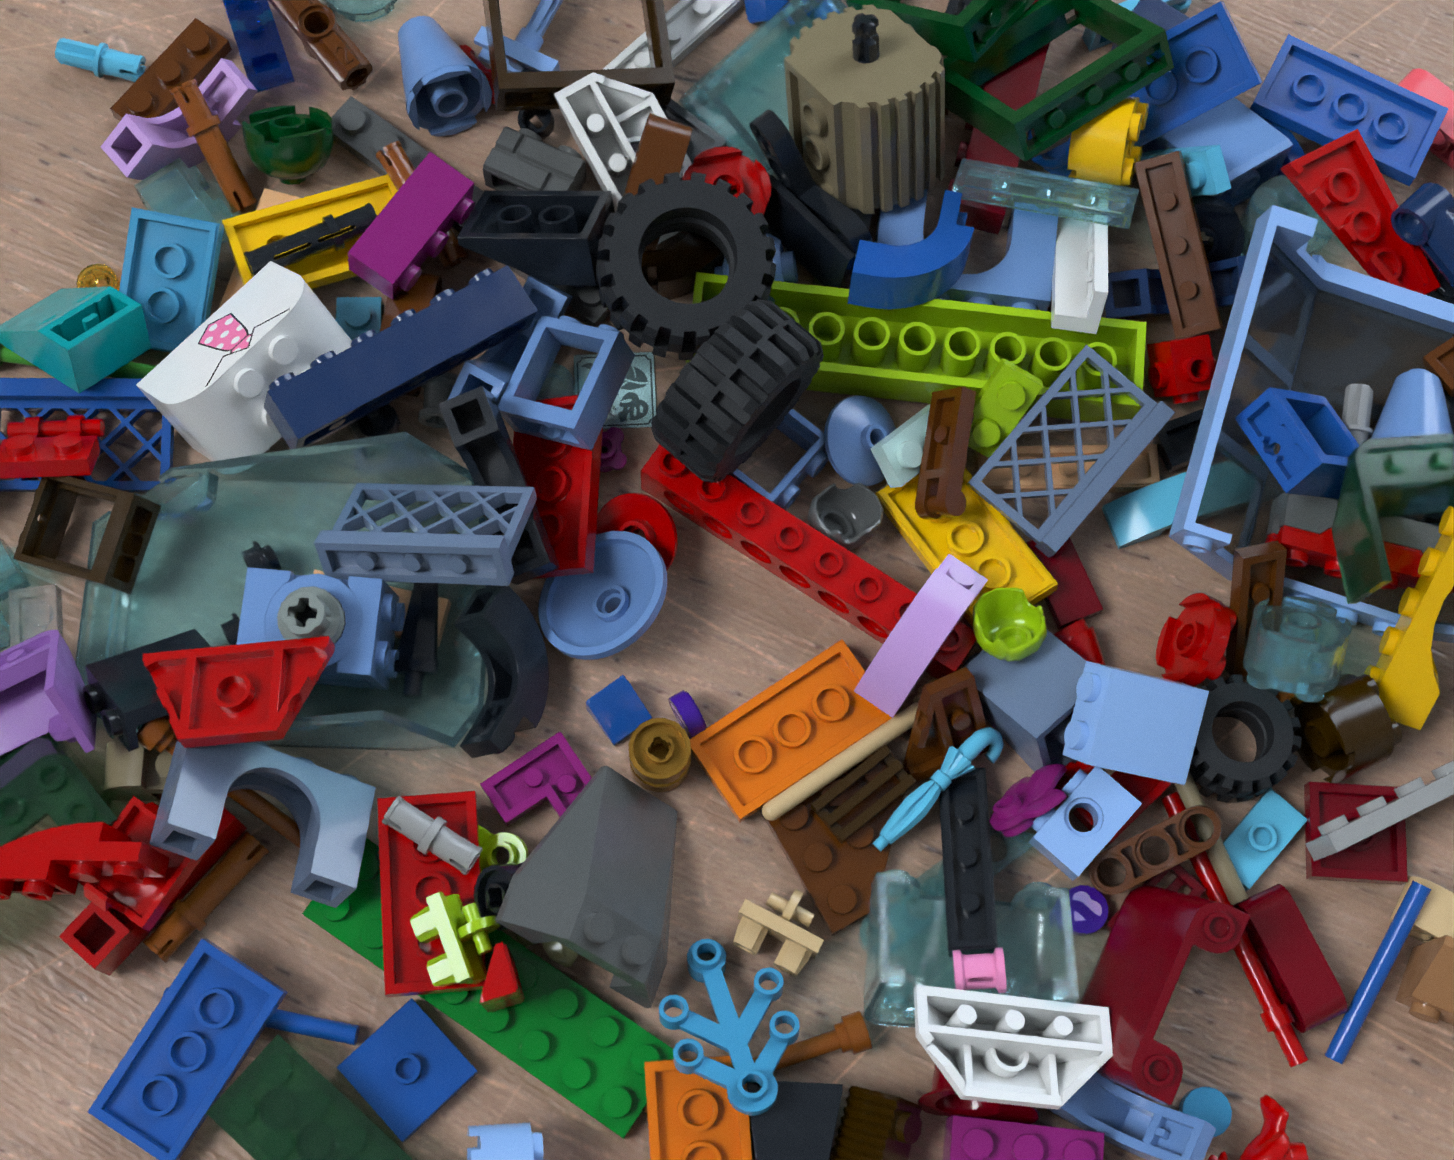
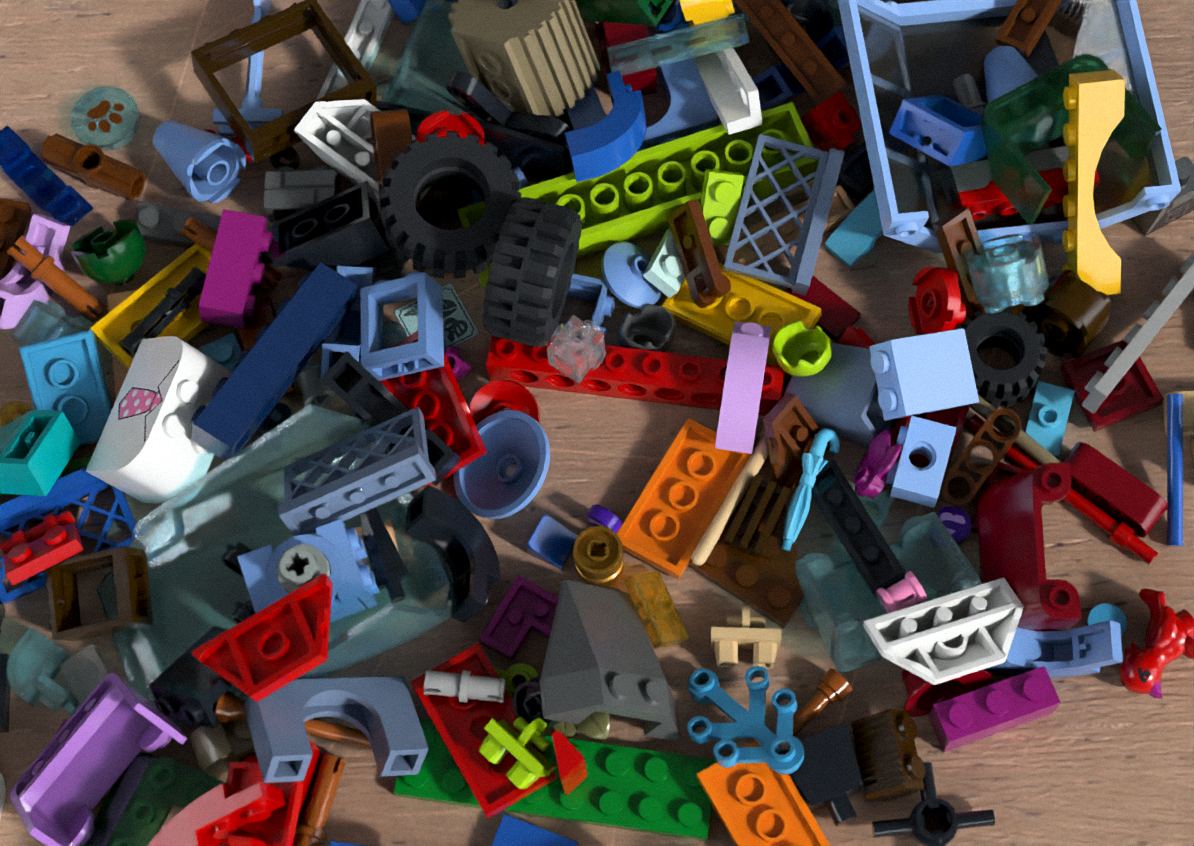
camera: 15 degrees left, 5 degrees down
(696, 846) = (656, 609): none -> clear yellow plate
(748, 502) = (576, 348): none -> clear brick

